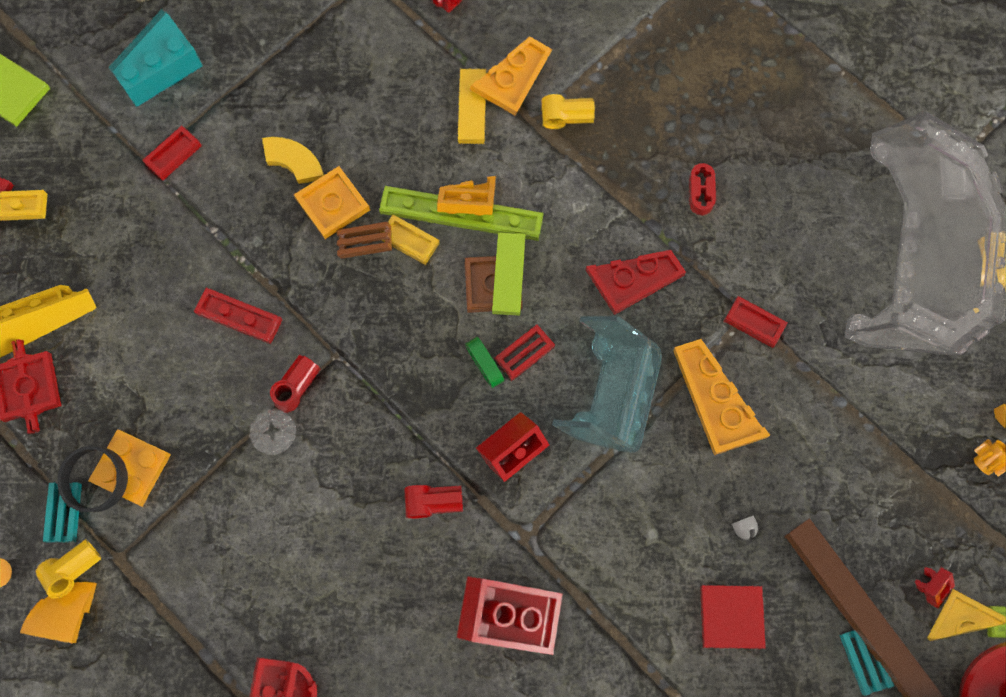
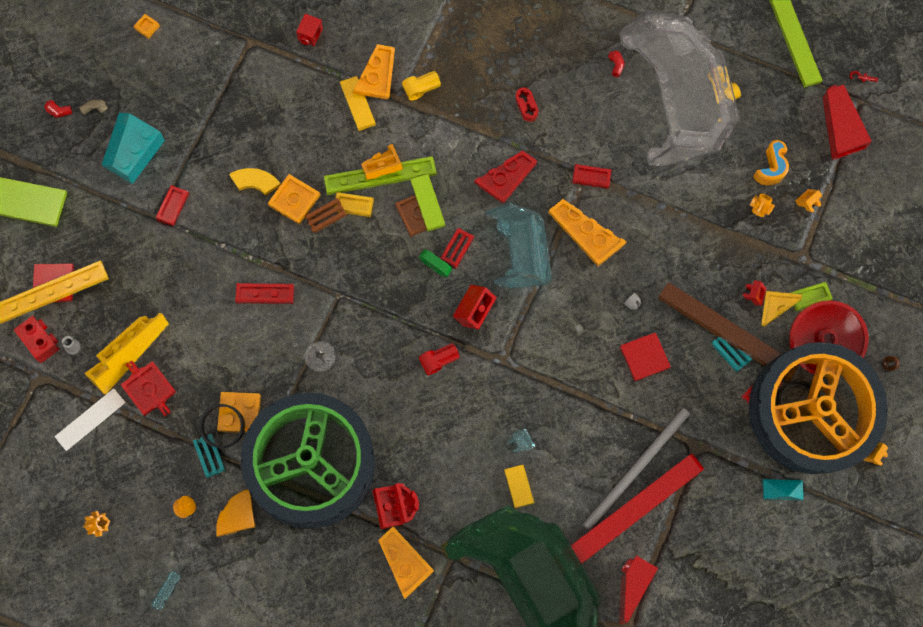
camera: 25 degrees left, 0 degrees up
(59, 574) = (227, 491): yellow piece -> none
(102, 573) = (318, 410): none -> wheel
(295, 381) = (321, 320): red piece -> none
(502, 672) = (523, 441): none -> clear light blue tile
(509, 615) = (513, 406): red slope -> none
(854, 168) = (618, 61): none -> red arm

